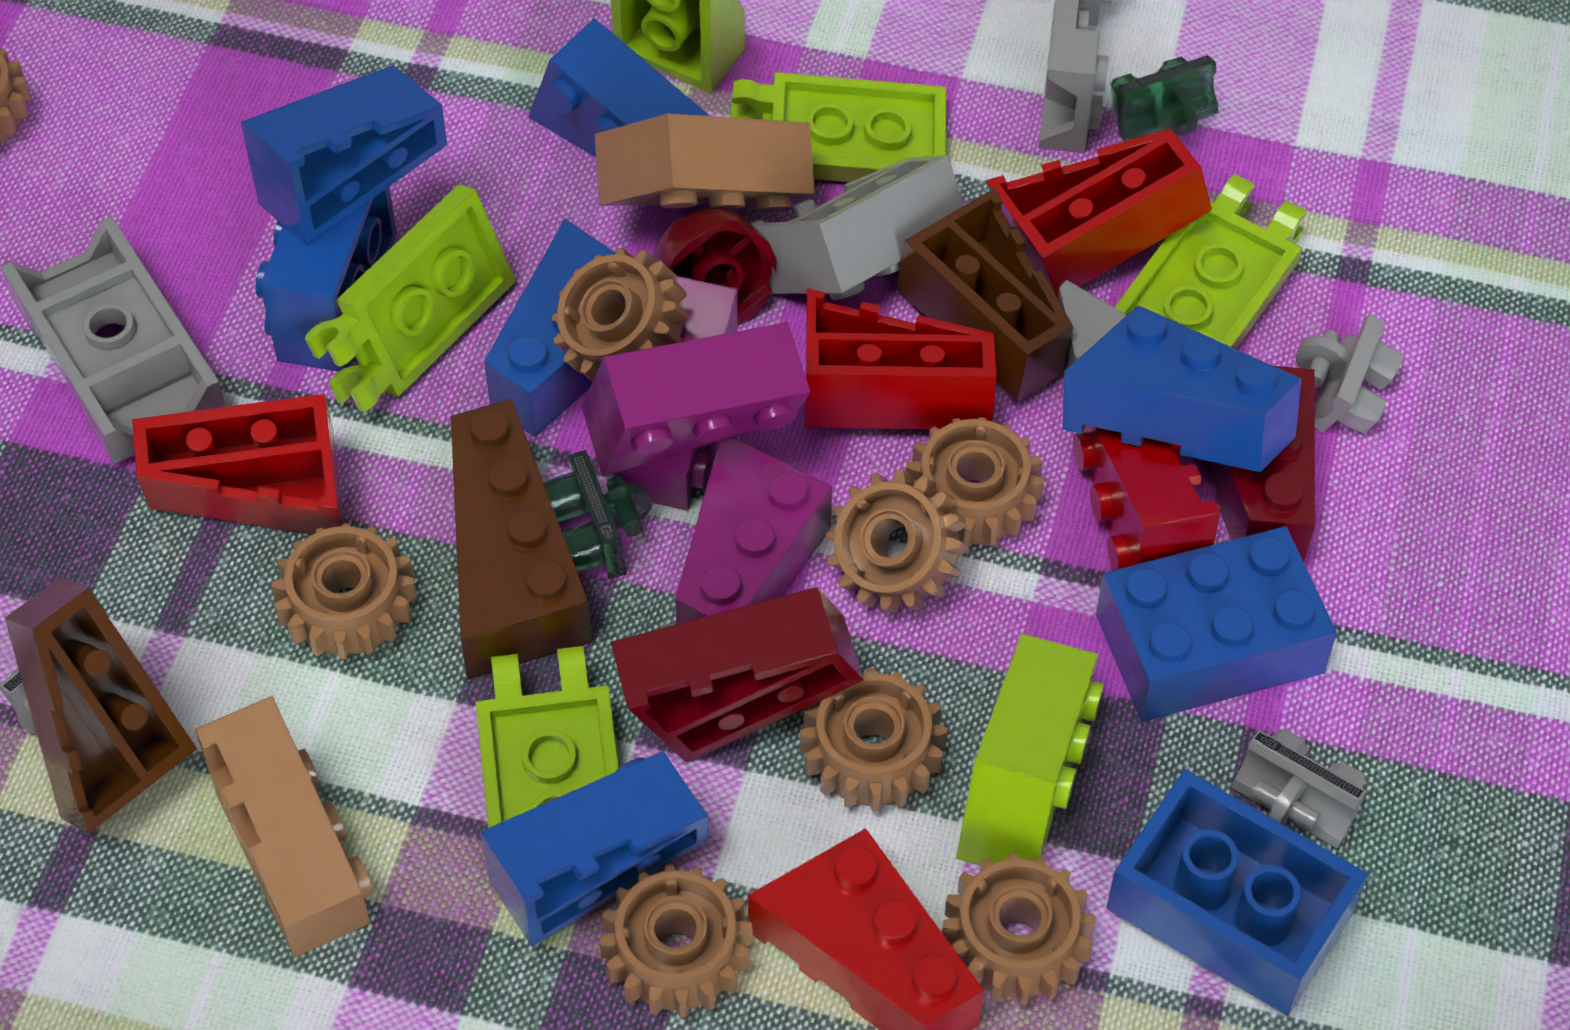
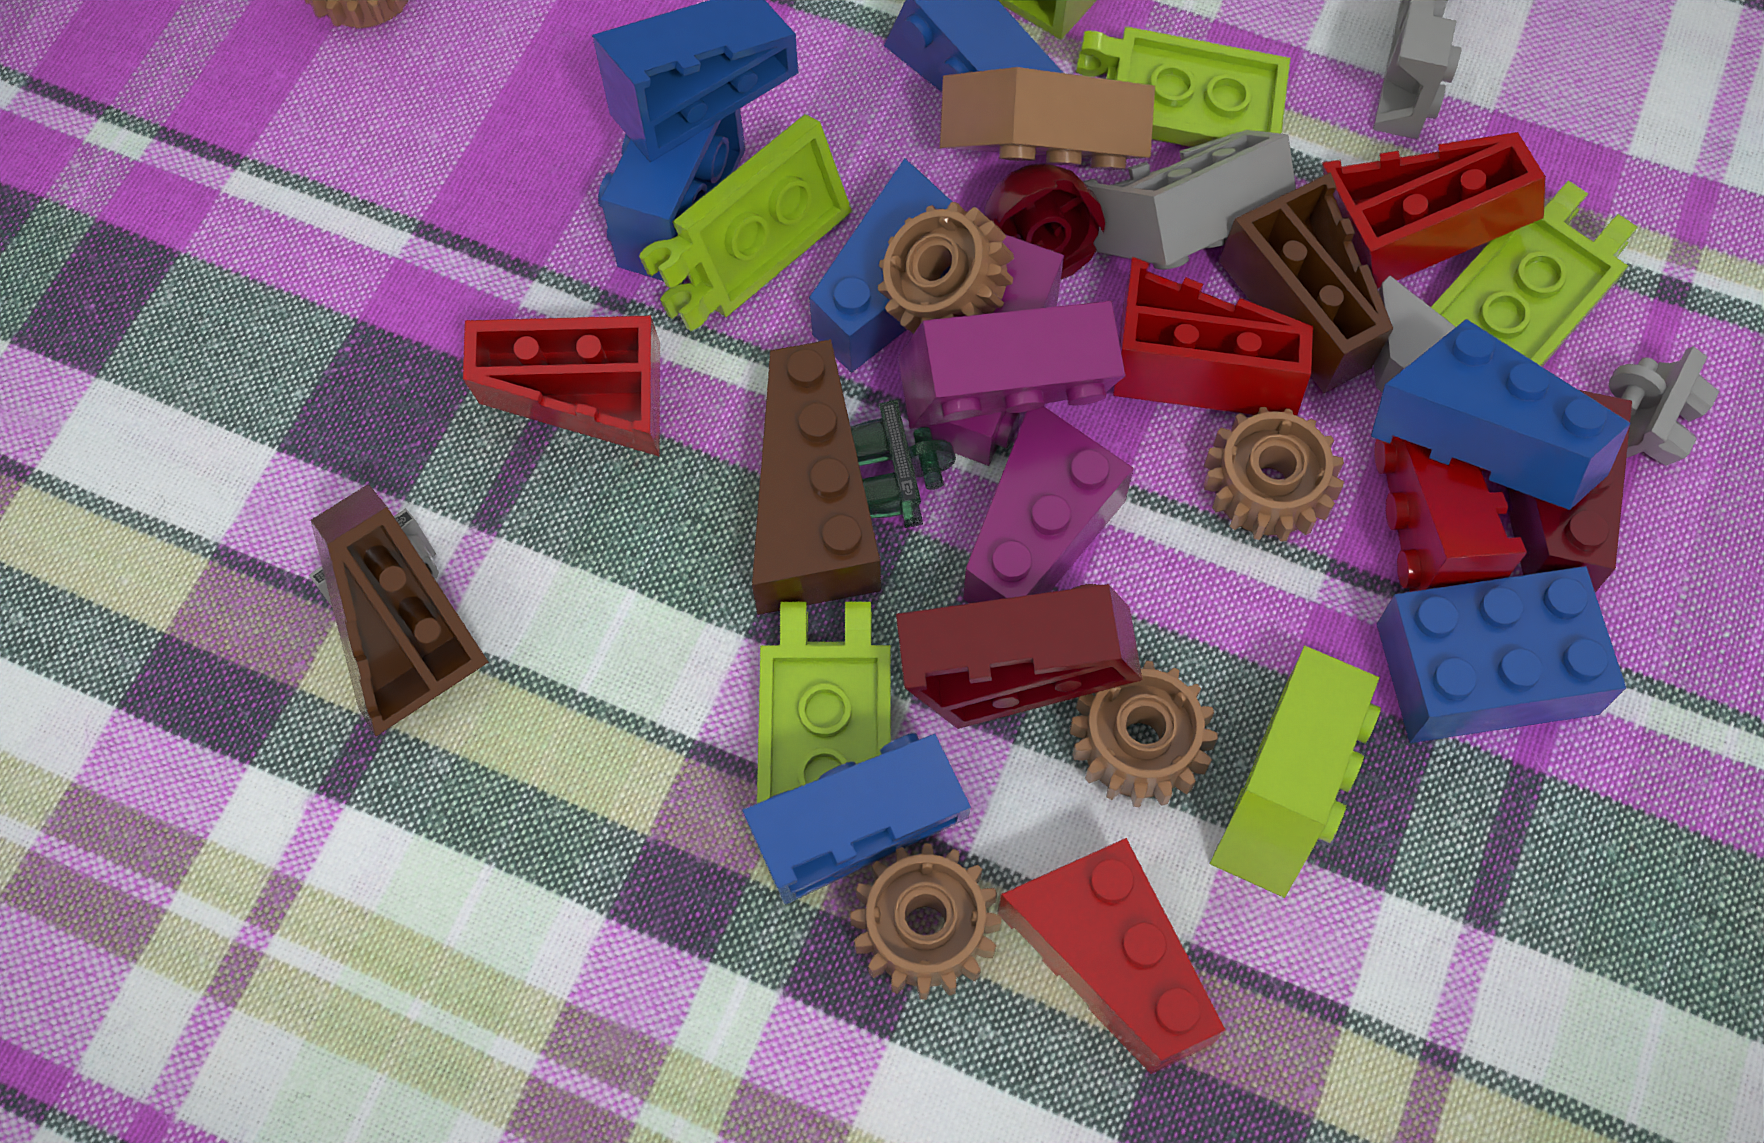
camera: 10 degrees right, 10 degrees up
(120, 378) = (475, 271): light grey piece -> none
(284, 826) = (562, 756): medium nougat wedge -> none
(349, 620) = (657, 543): medium nougat gear -> none
(863, 534) = (1156, 524): medium nougat gear -> none
(1025, 894) = (1292, 929): medium nougat gear -> none
(1165, 99) = (1506, 94): clear green hips -> none
(1236, 891) = (1494, 952): blue brick -> none
(1299, 788) = (1564, 843): light grey hips -> none

